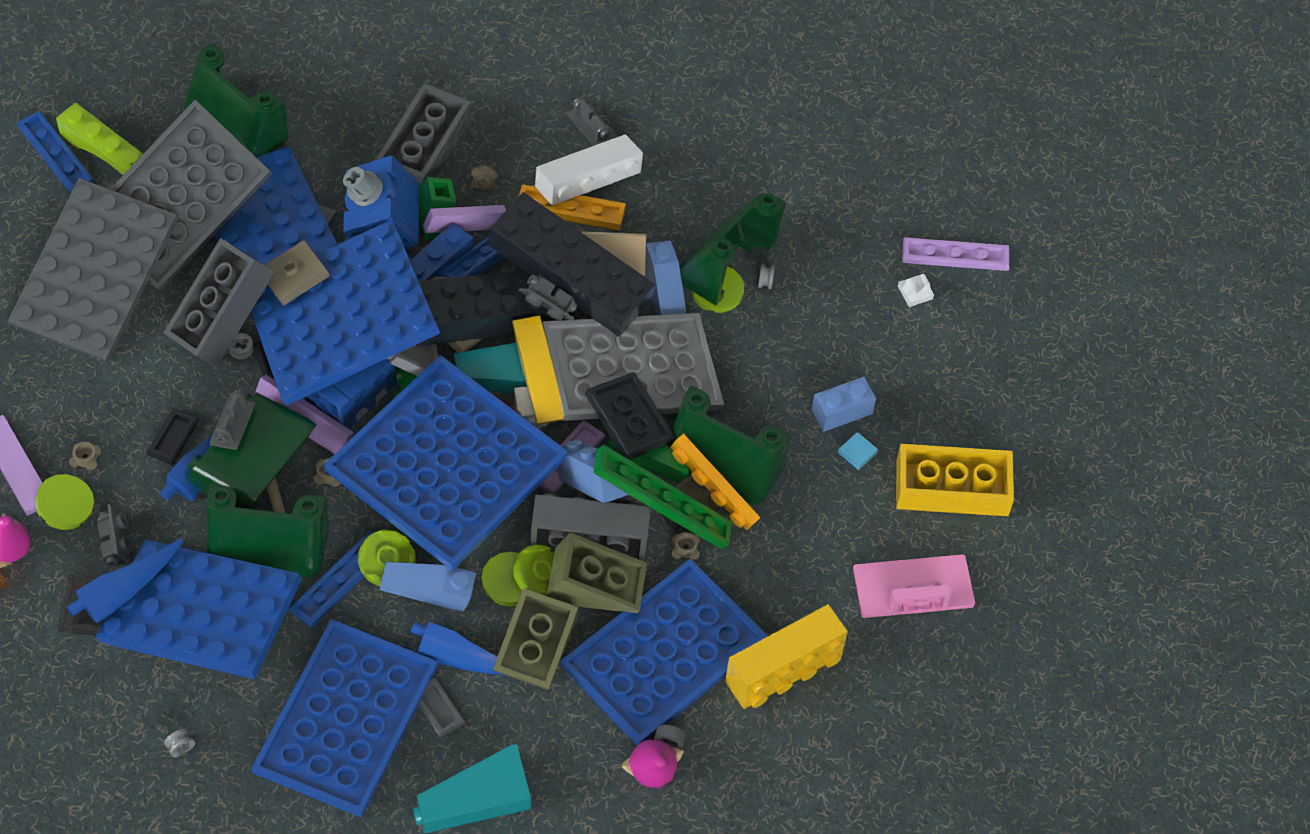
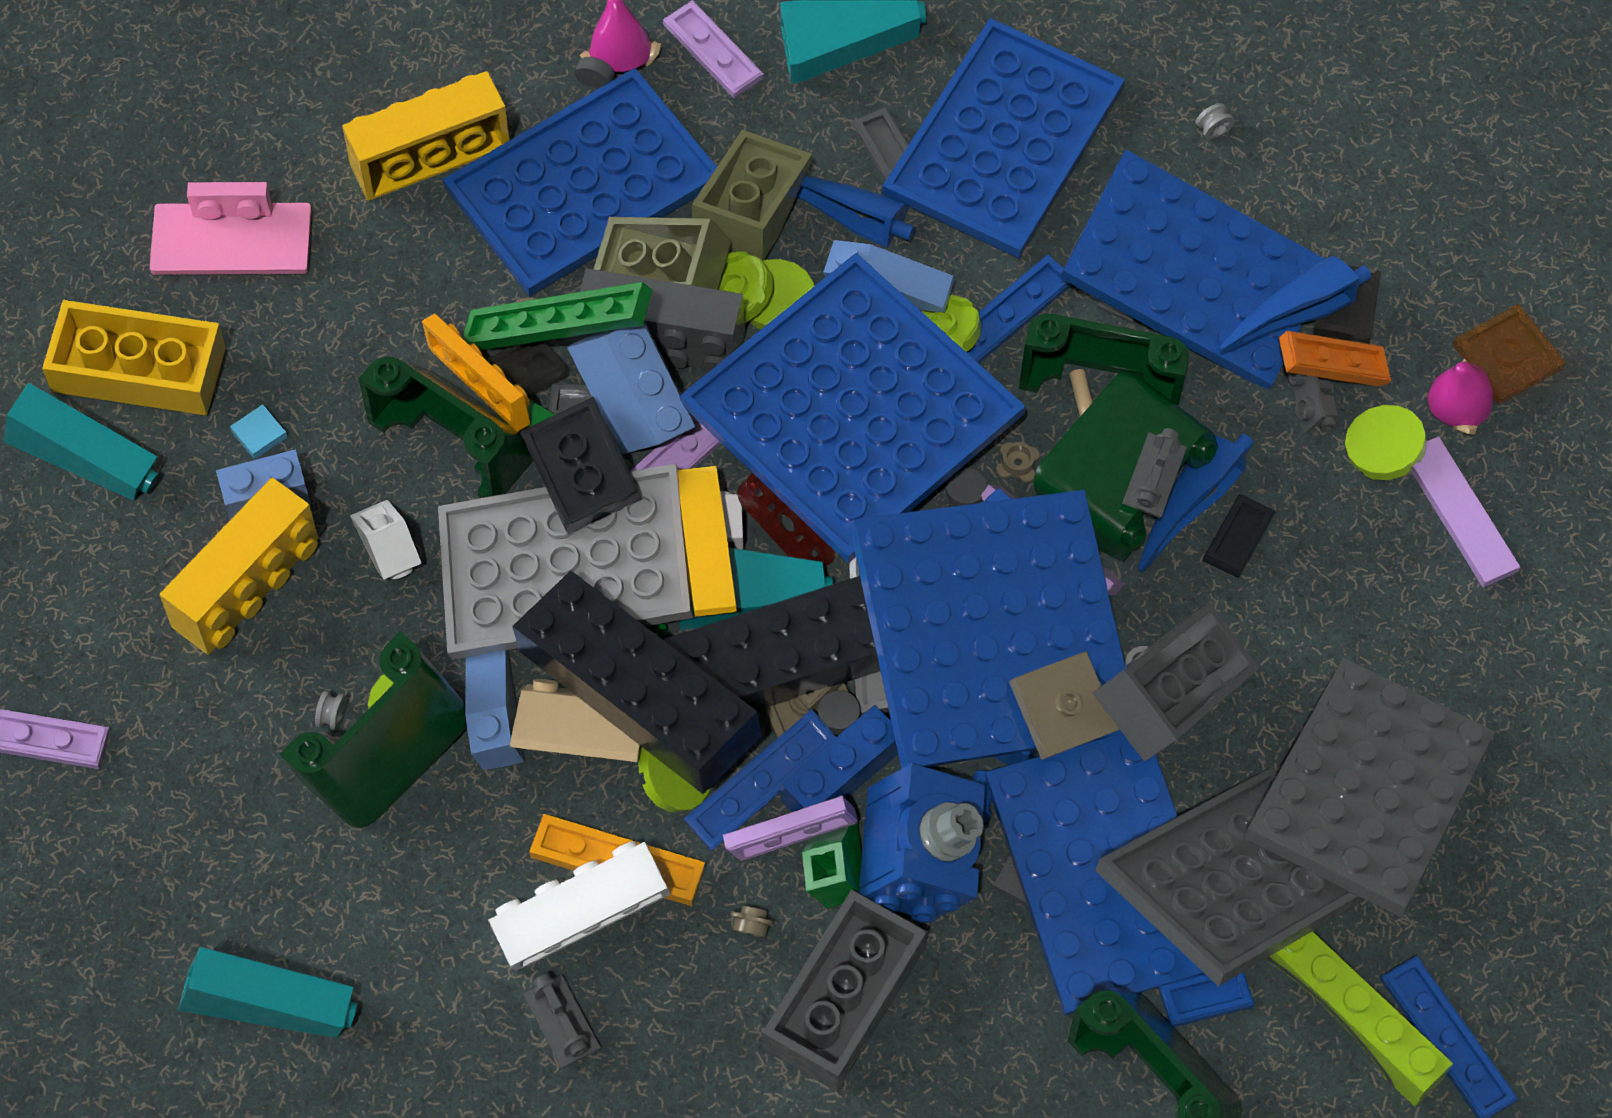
camera: 170 degrees left, 5 degrees up
(82, 449) = (1362, 504): dark tan plate -> none
(98, 549) = (1334, 359): none -> orange tile
(539, 294) = (680, 619): dark grey hinge -> none
(581, 776) = (713, 49): none -> lavender tile
(755, 381) = (386, 540): none -> white slope
(769, 114) = (265, 995): none -> teal slope
(844, 340) = (240, 567): none -> yellow brick
(916, 290) = (103, 676): white tile -> none
(976, 418) = (78, 444): none -> teal slope

